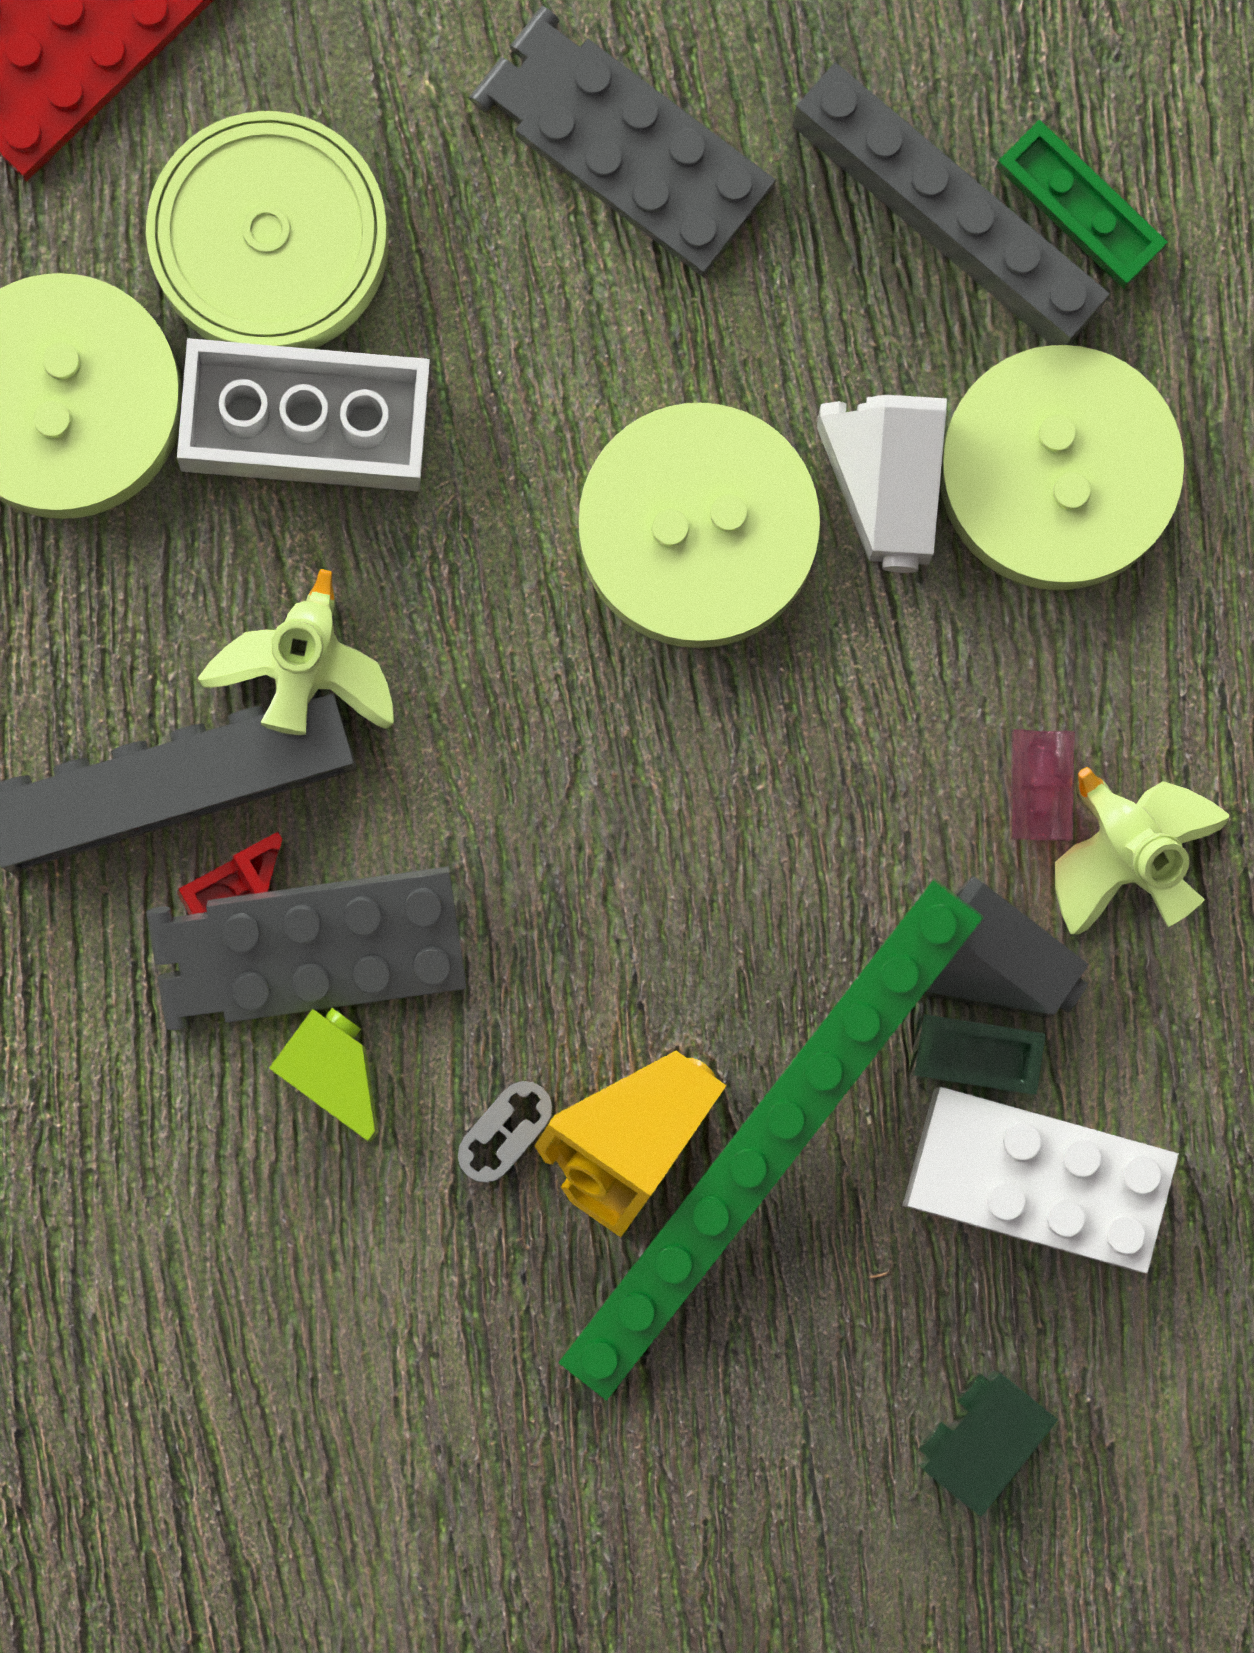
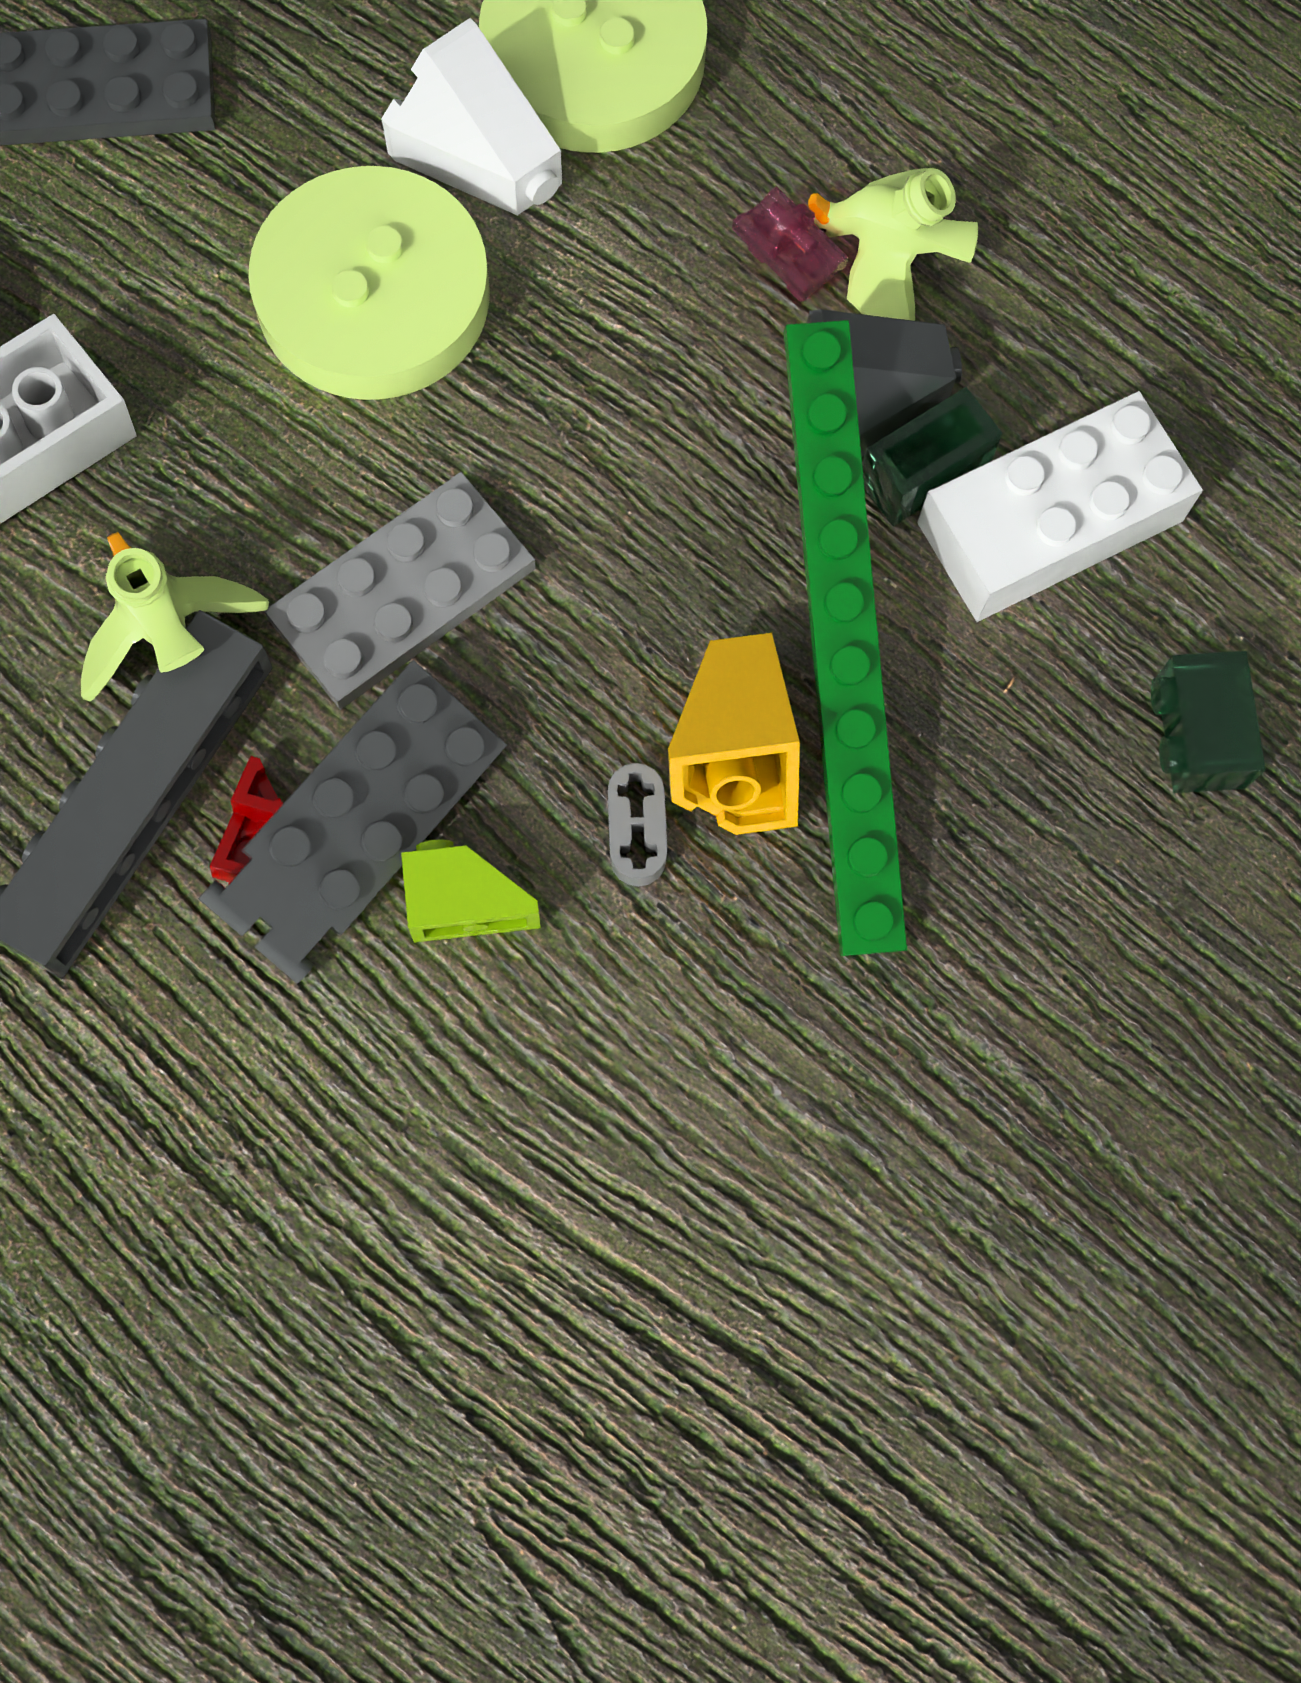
camera: 45 degrees left, 10 degrees down
(500, 795) = (400, 590): none -> light grey plate

